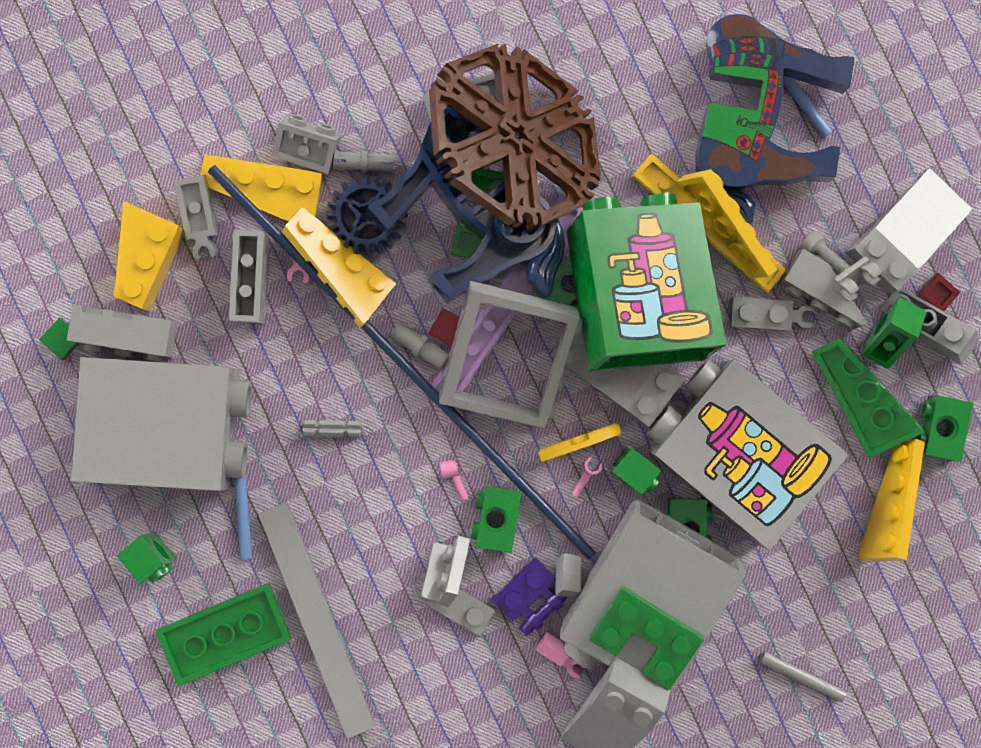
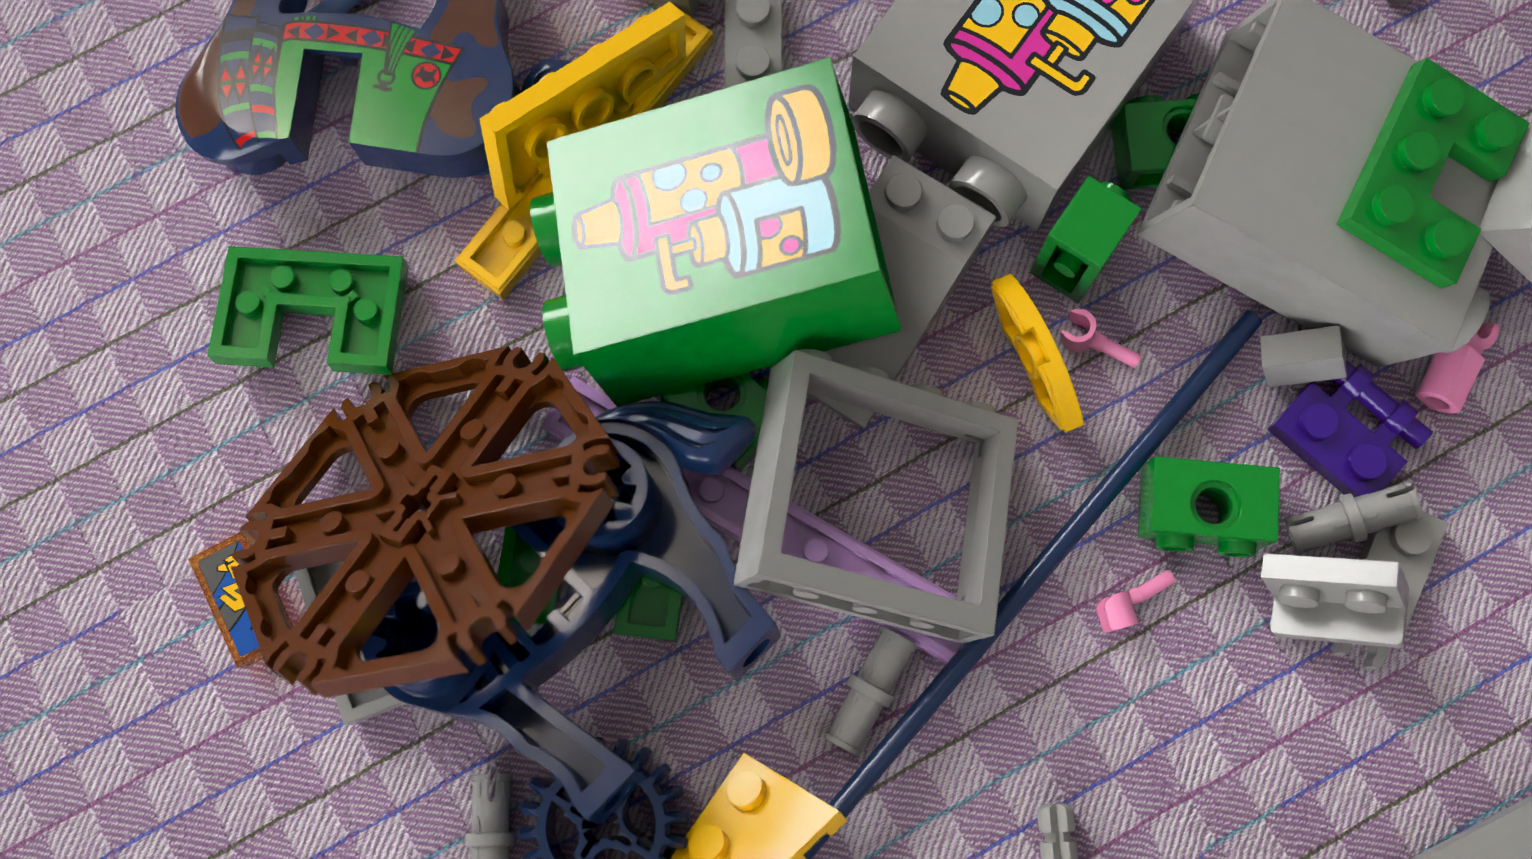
camera: 90 degrees left, 10 degrees down
(445, 327) = (827, 638): dark red tile -> none
(485, 588) = (1353, 517): none -> light grey pin
(497, 34) = (221, 591): none -> tile
(639, 104) = (356, 289): none -> green plate

